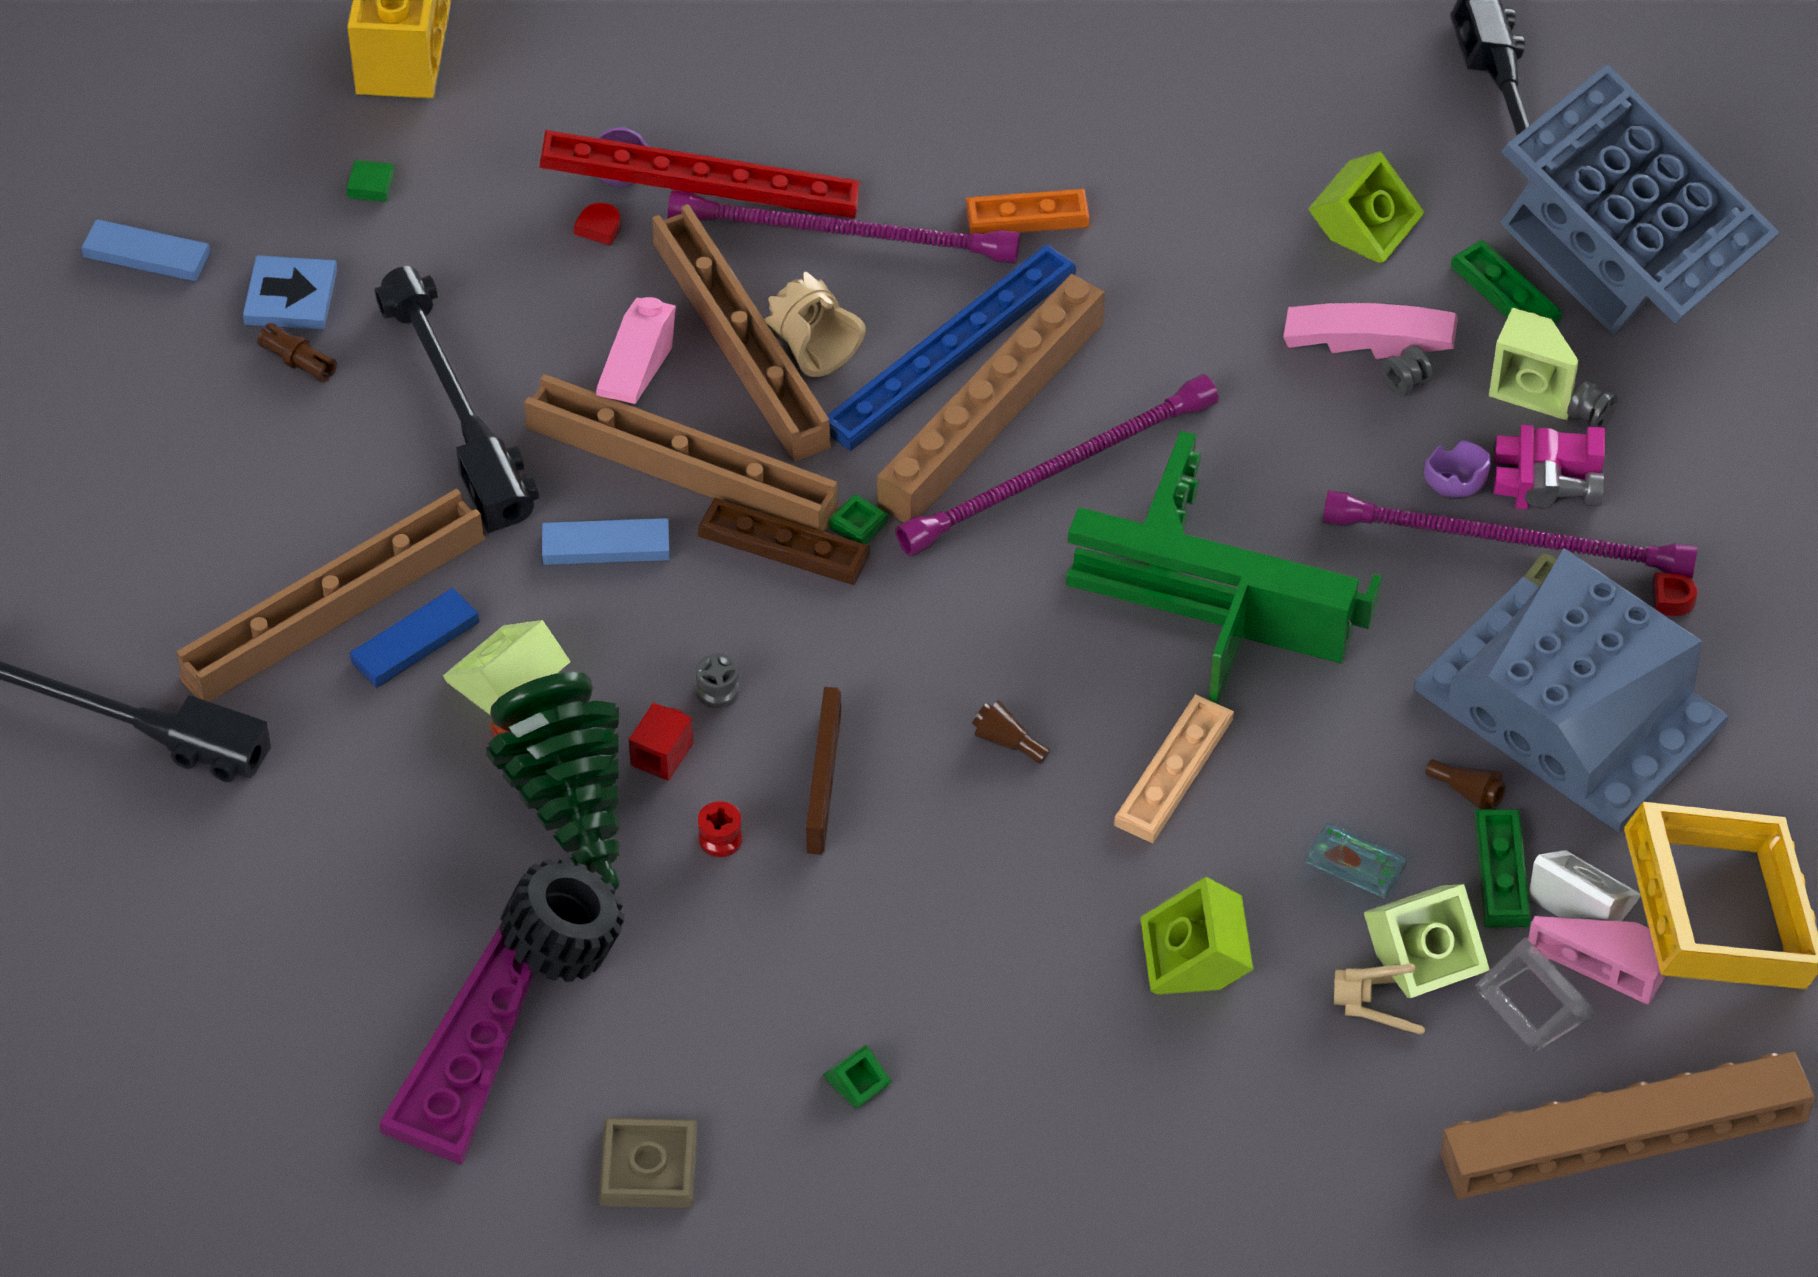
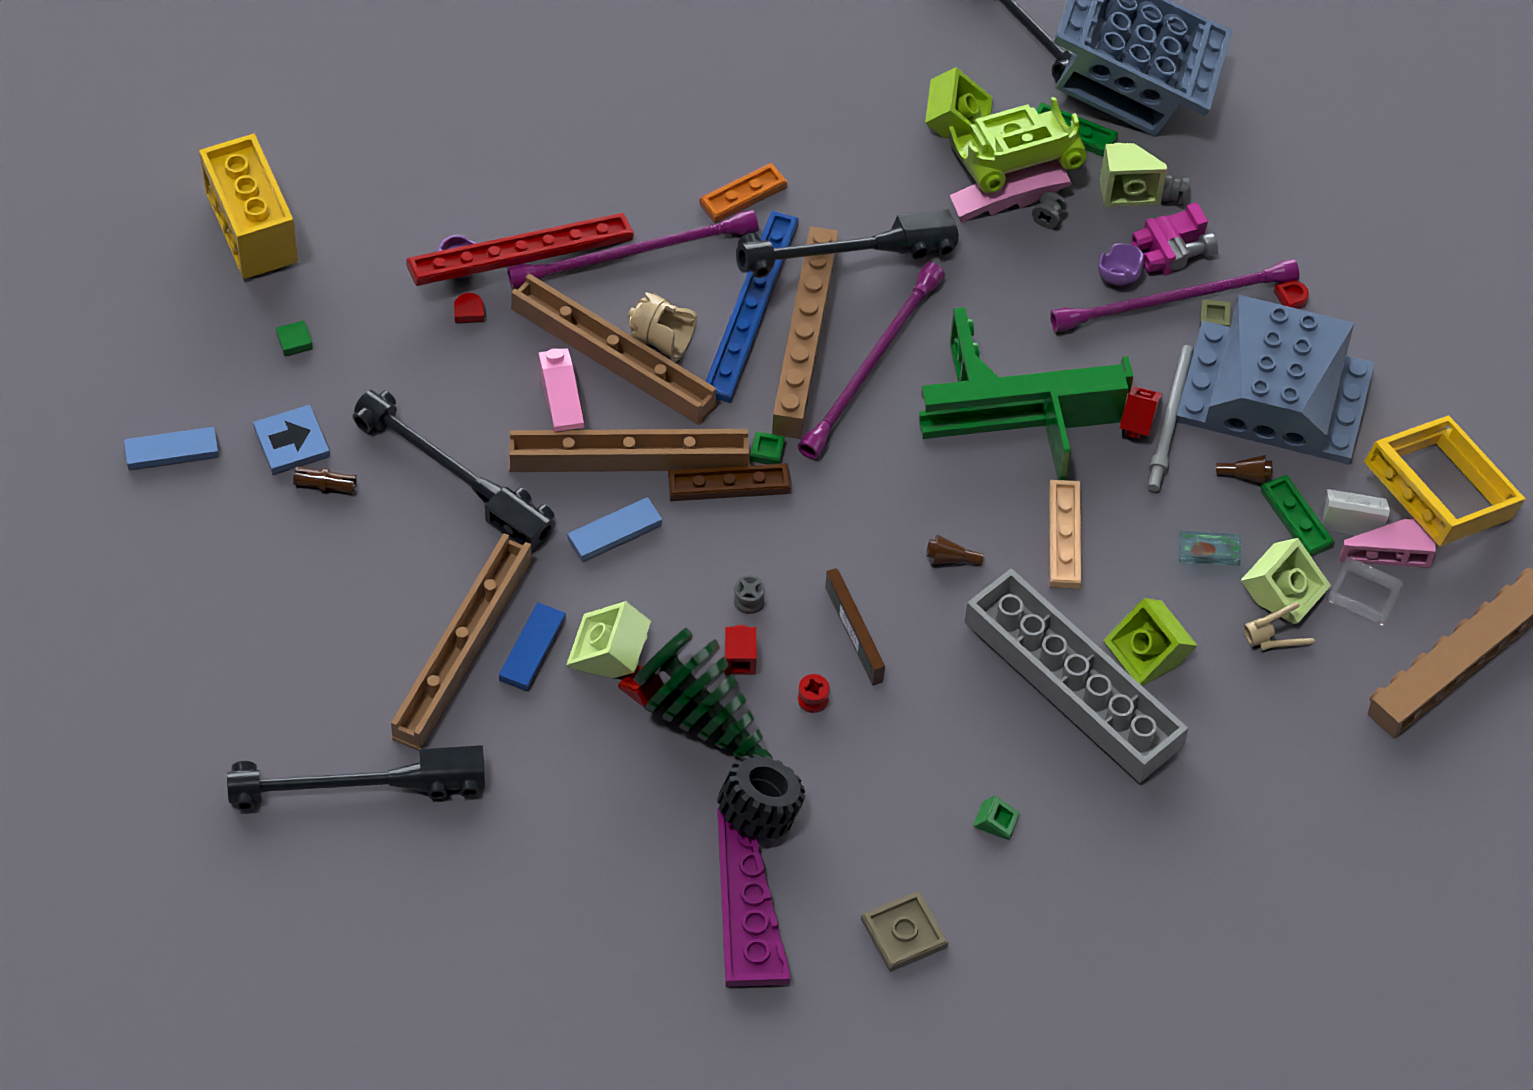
camera: 30 degrees left, 5 degrees up
(1066, 942) = (1076, 675): none -> light grey brick
(1201, 332) = (909, 234): none -> black bar
(1357, 727) = (1159, 461): none -> light grey bar
(1367, 655) = (1140, 411): none -> red slope
(1406, 268) = (1017, 141): none -> lime piece

